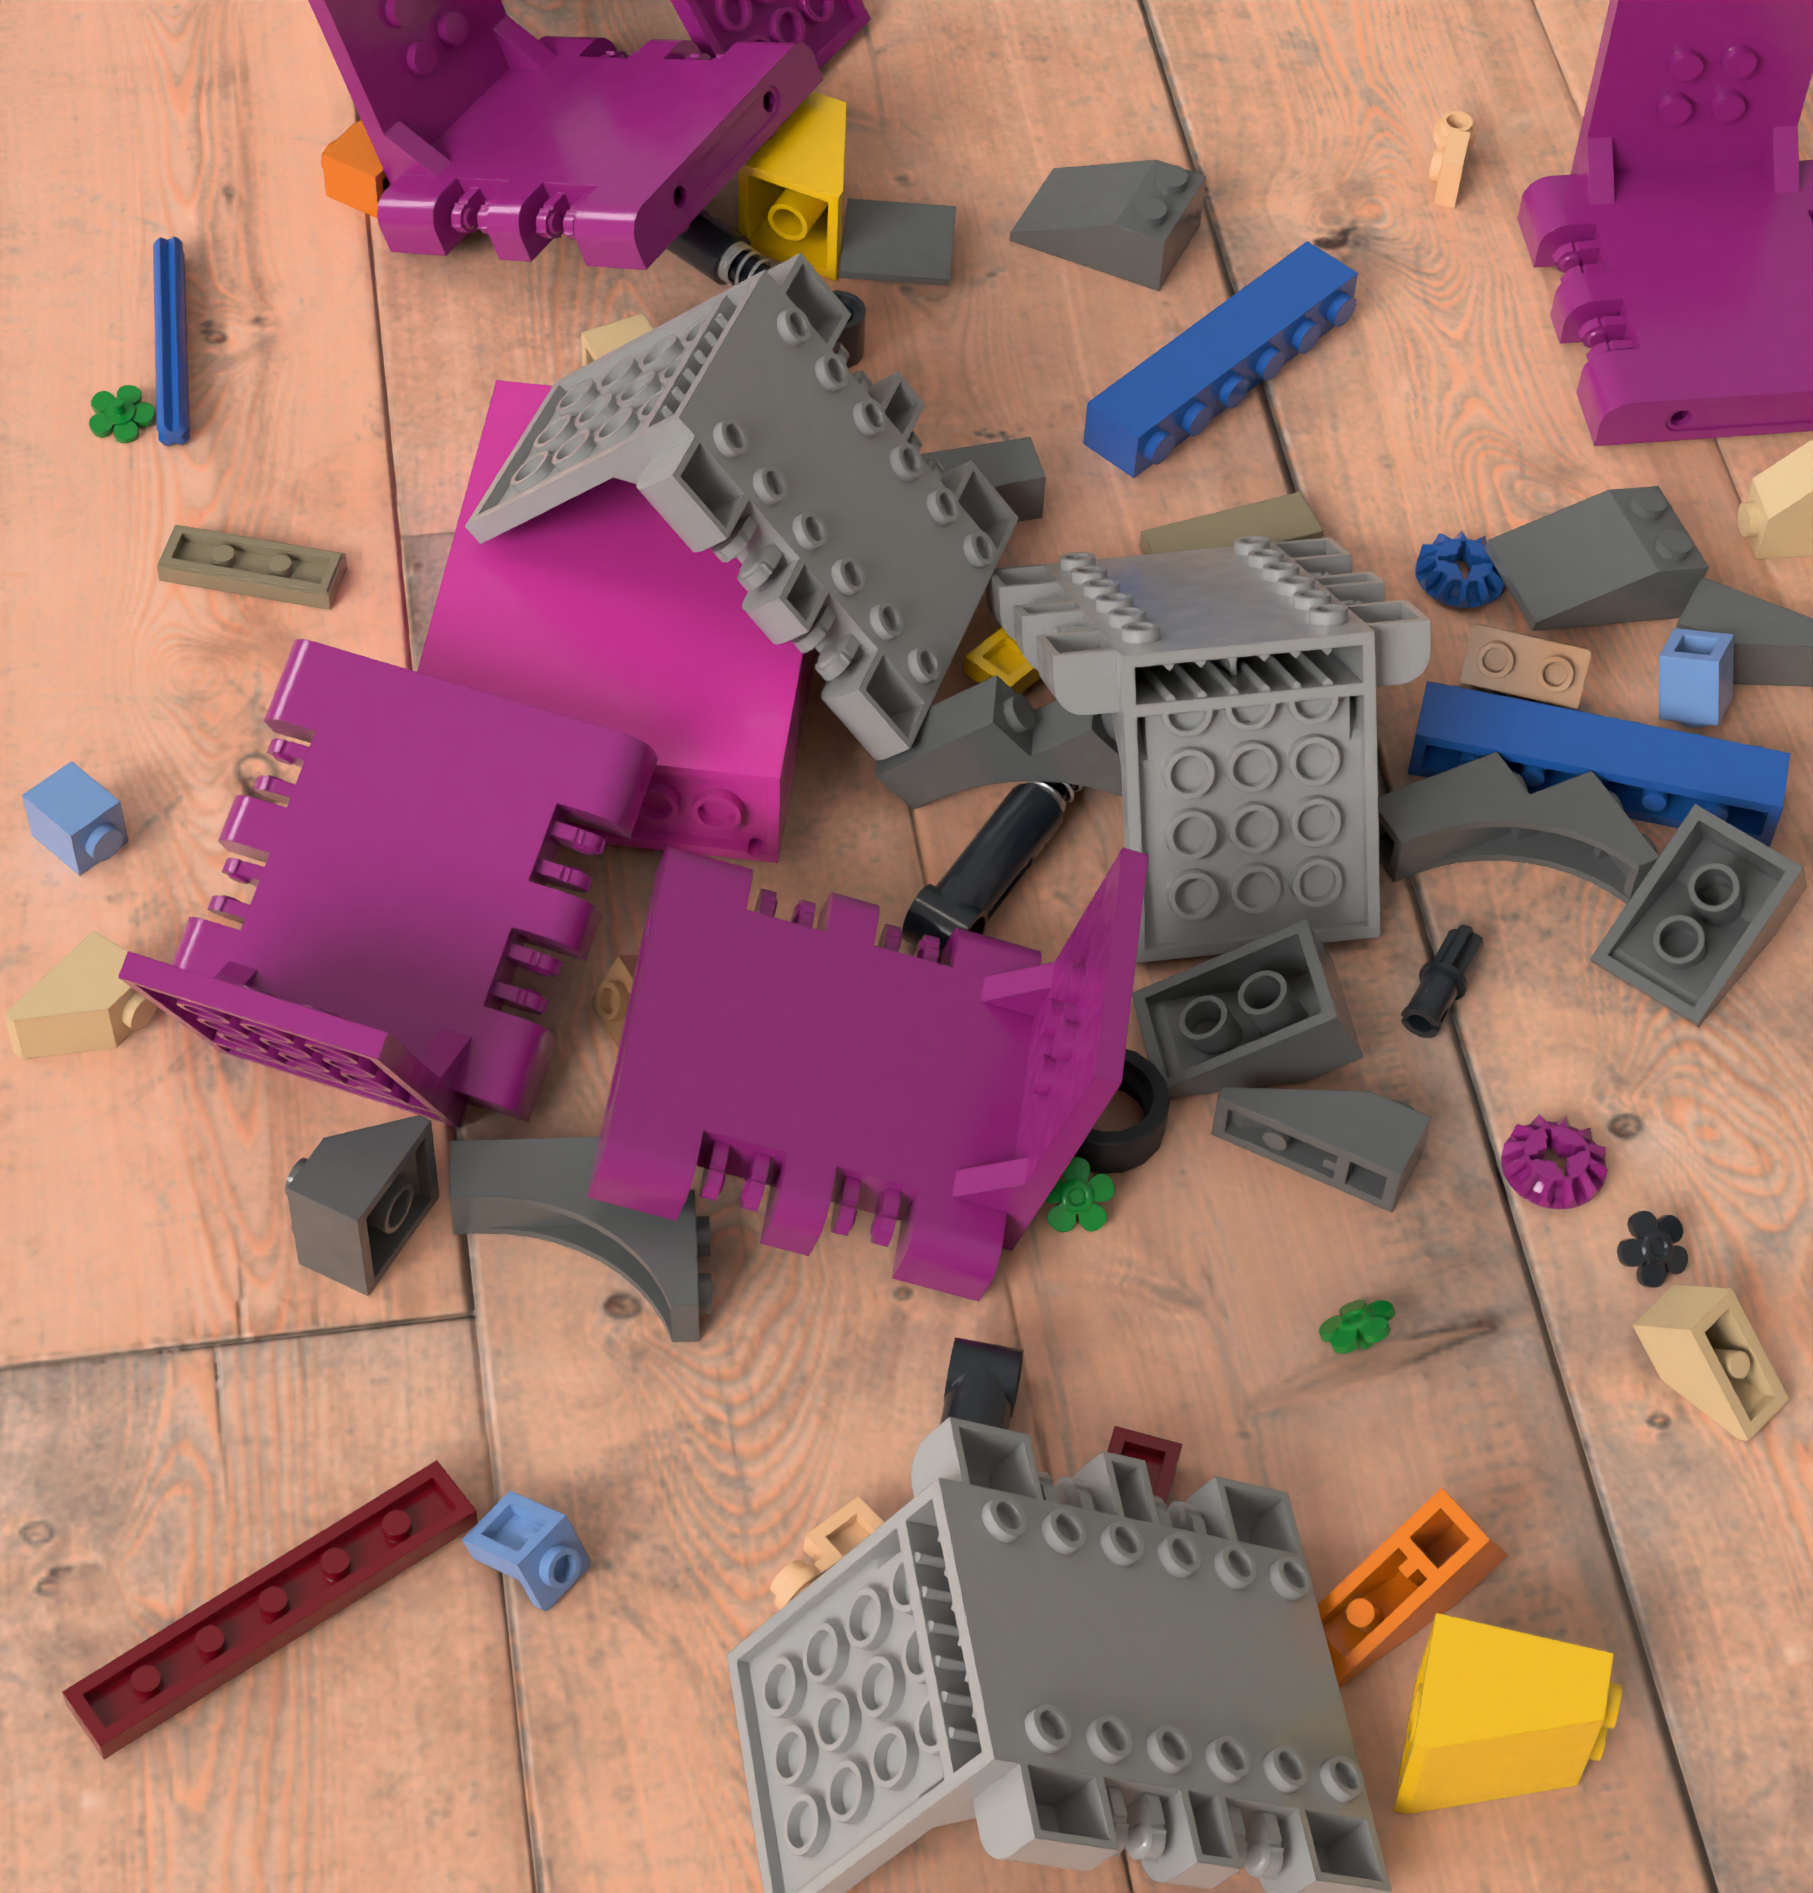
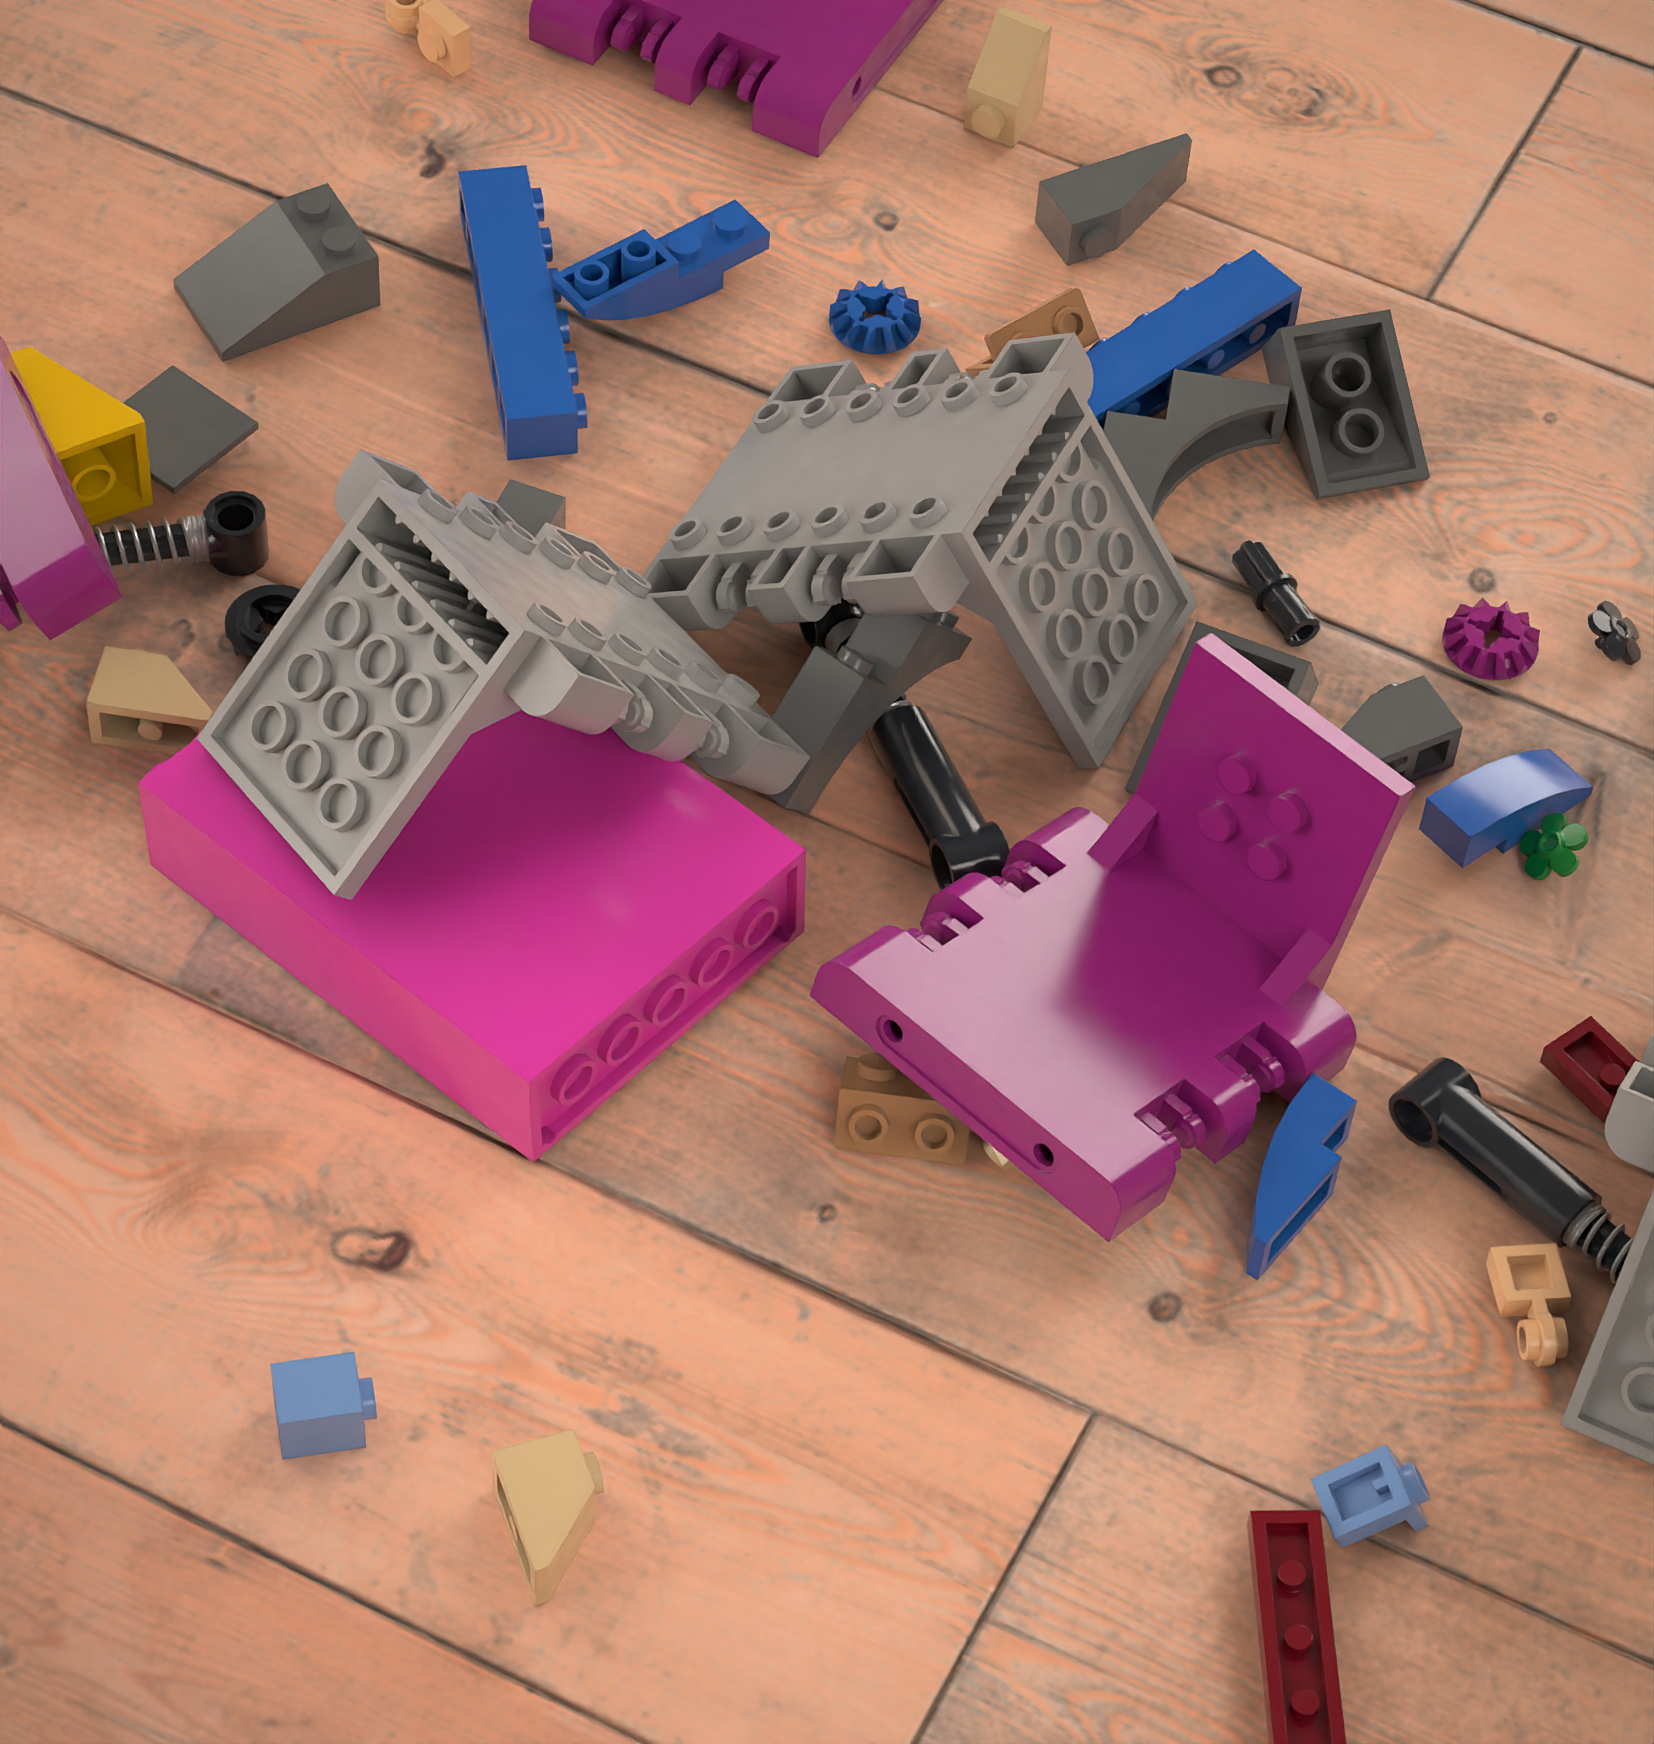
camera: 55 degrees left, 0 degrees up
(252, 567) = (108, 1113): dark tan tile -> none
(362, 1199) = (967, 1416): dark grey slope -> none
(402, 887) = (675, 1184): magenta bracket -> none
(542, 1192) = (1056, 1267): dark grey arch -> none
(813, 1313) = (1298, 1170): none -> blue slope
(1000, 657) = (731, 649): yellow plate -> none
(1276, 518) = (709, 428): dark tan tile -> none
(1332, 408) = (661, 274): none -> blue slope
(1369, 1259) = (1500, 803): none -> blue slope
(1600, 562) = (961, 228): dark grey slope -> none
(1696, 677) = (1128, 252): medium blue brick -> none

